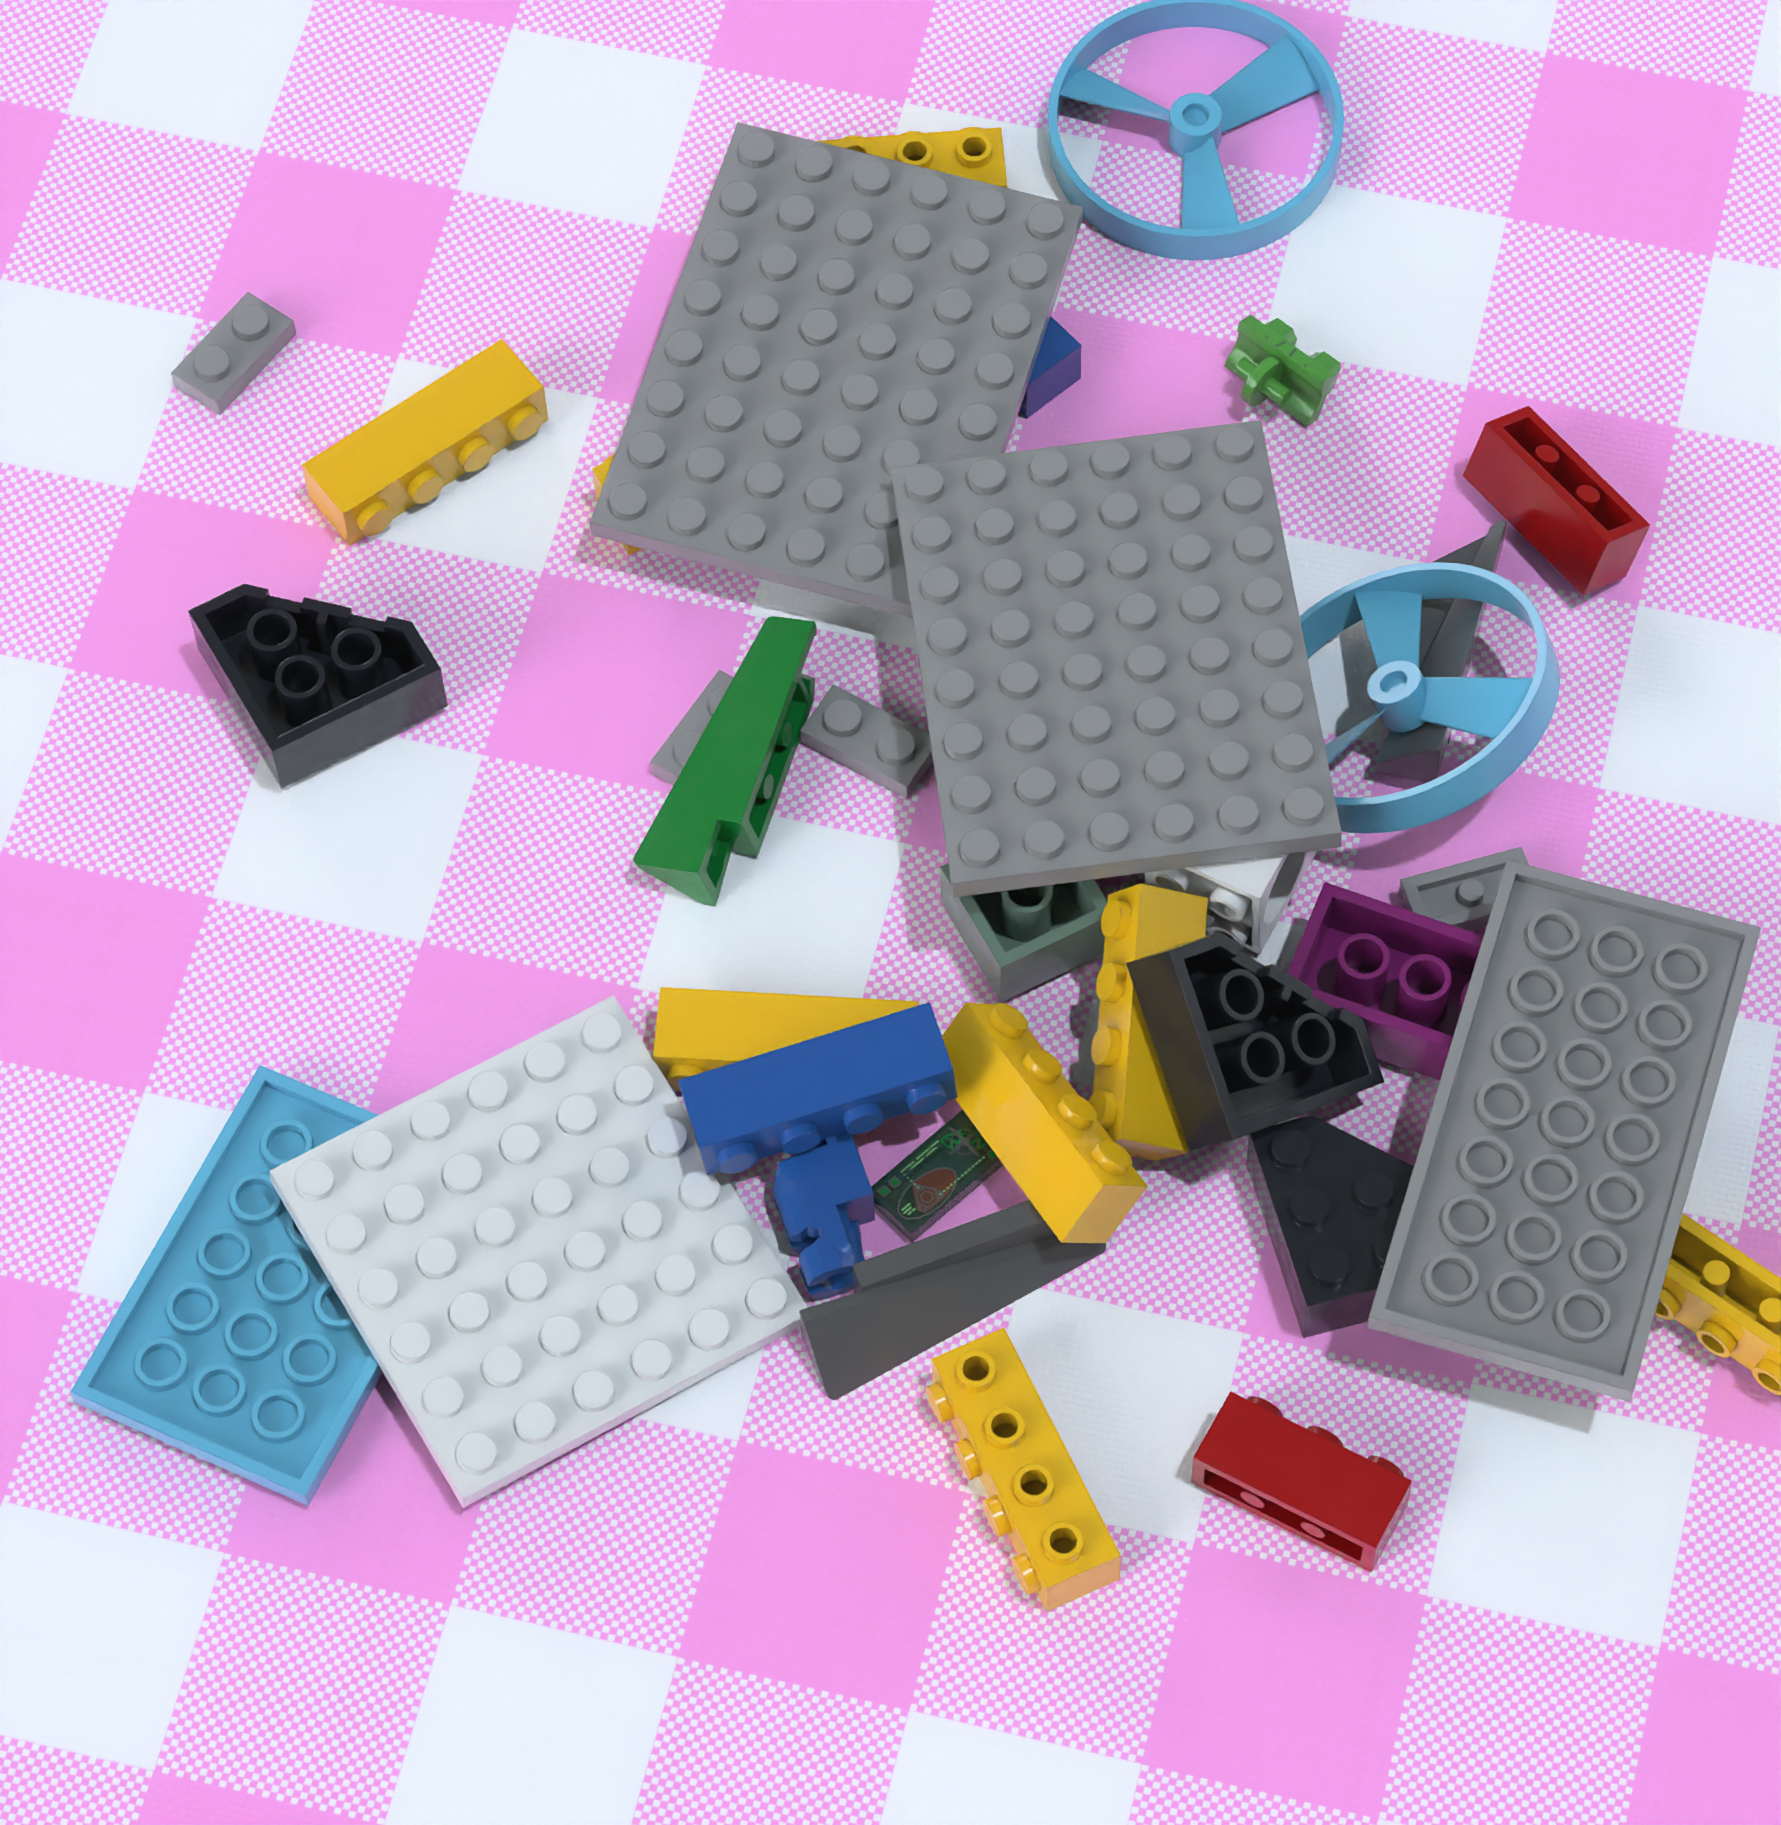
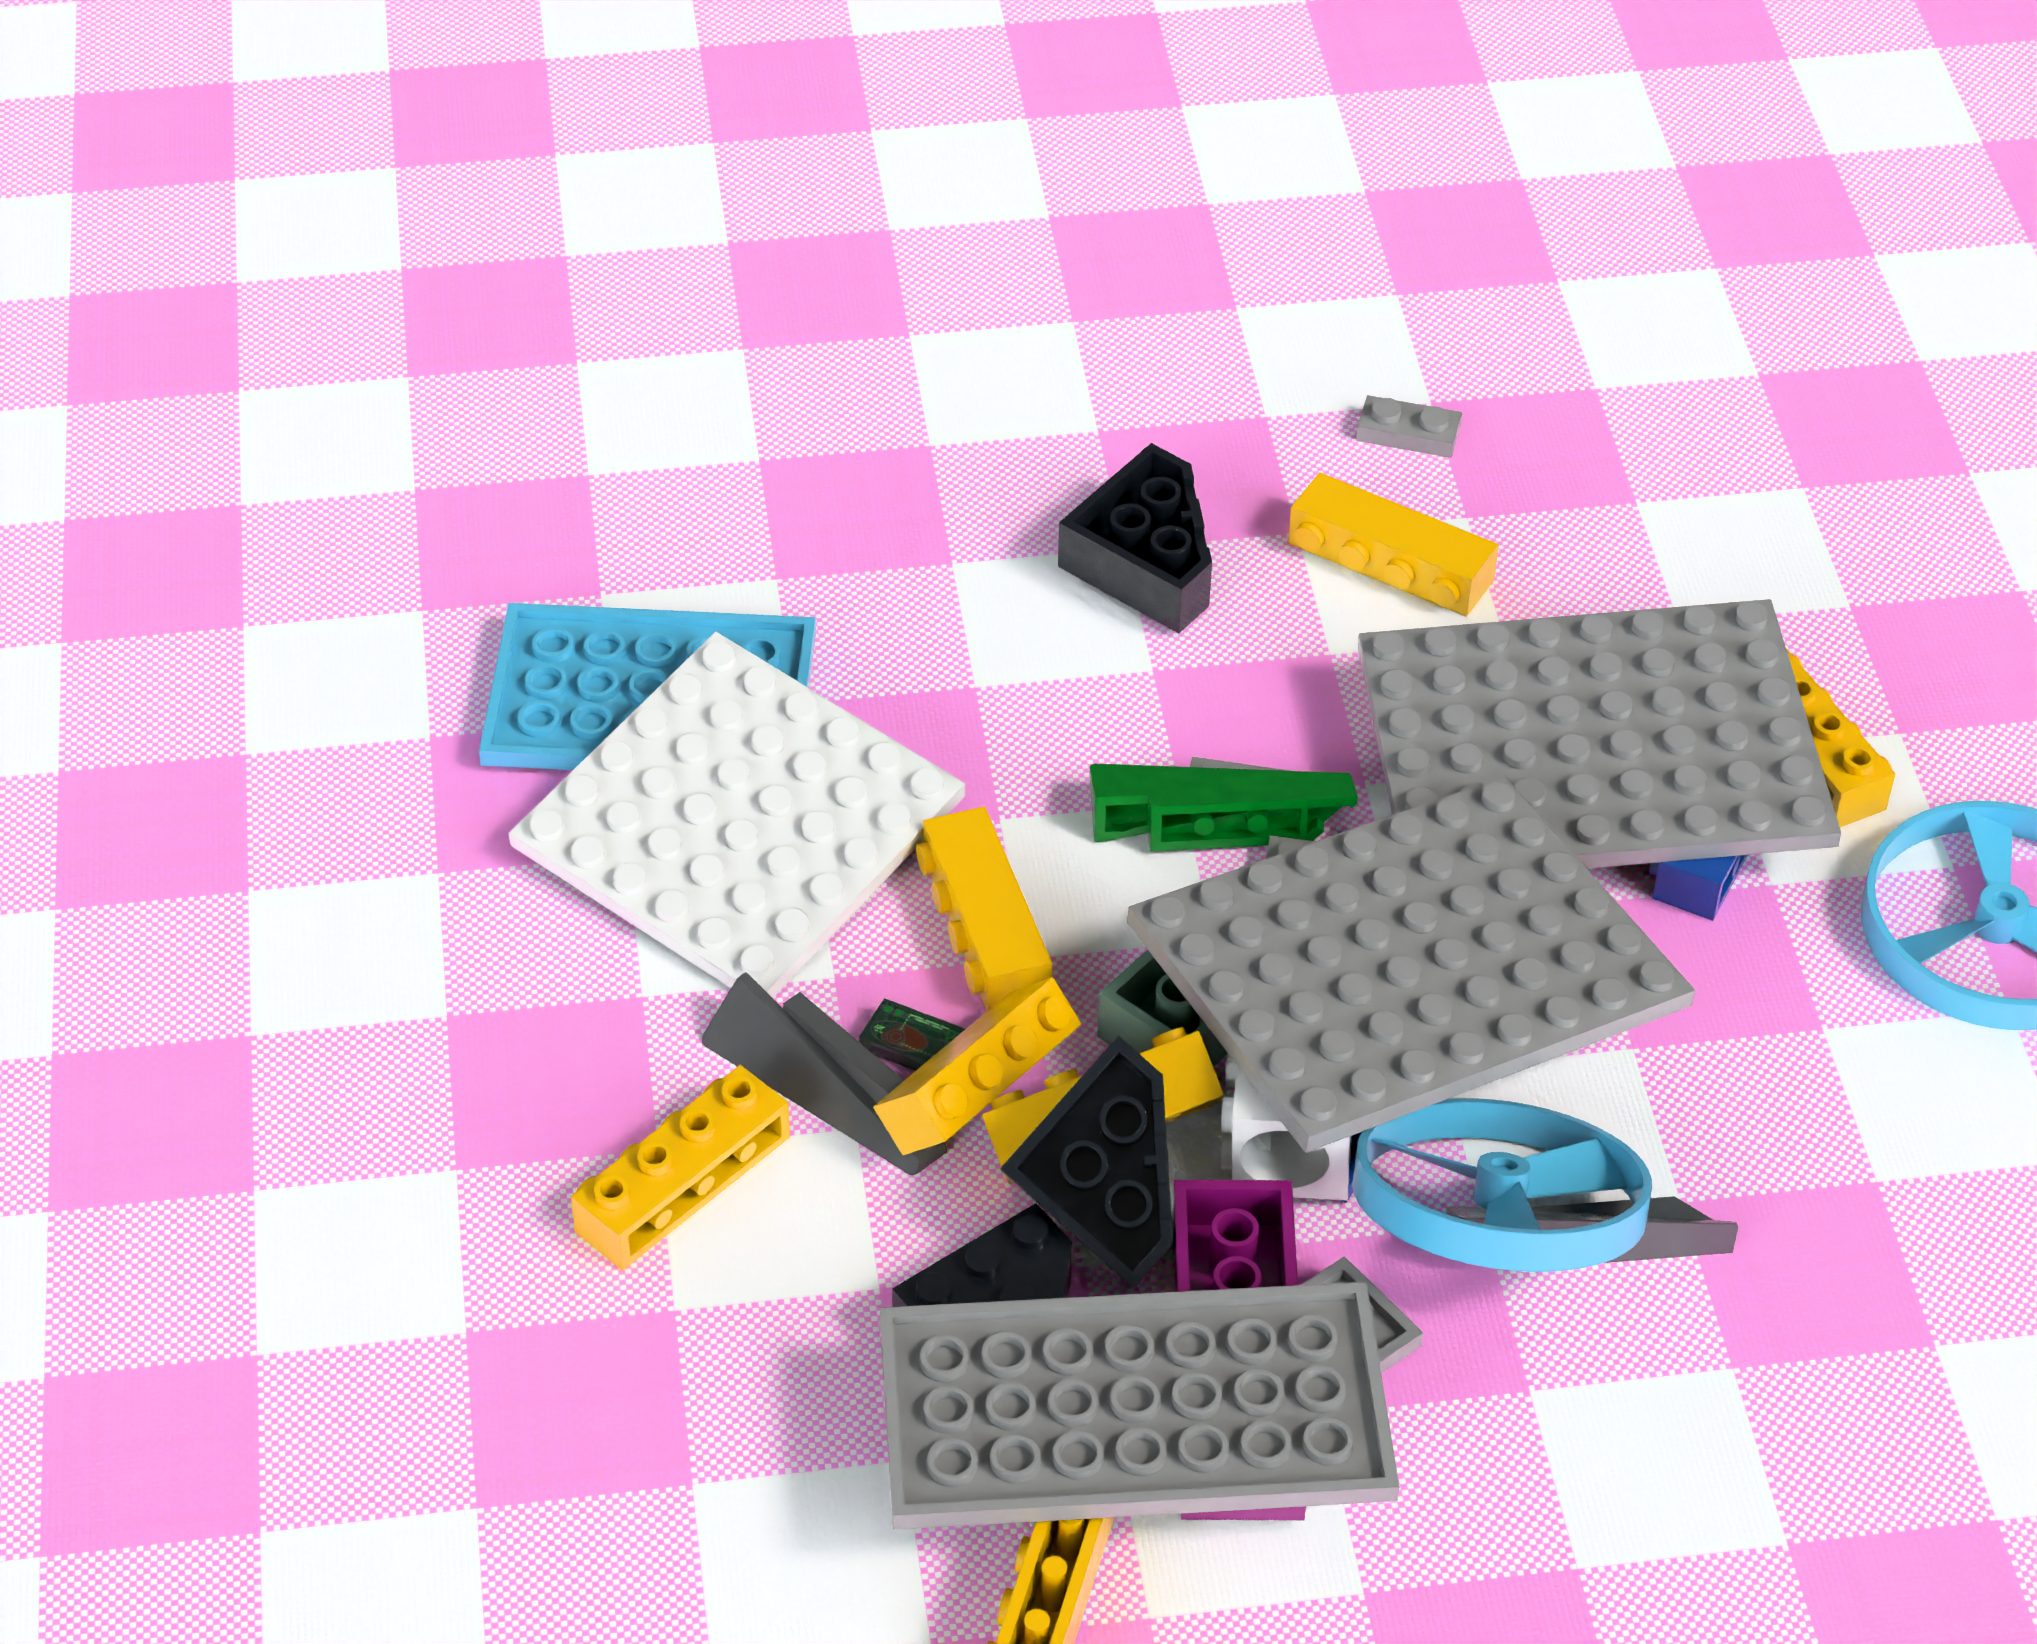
camera: 65 degrees right, 15 degrees down
(819, 1089) = (932, 912): blue brick -> none
(822, 1204) = (871, 968): blue plate -> none
(1279, 370) = (1789, 1031): bright green hips -> none
(1301, 1480) = (750, 1353): red brick -> none
(1556, 500) = (1780, 1254): red brick -> none

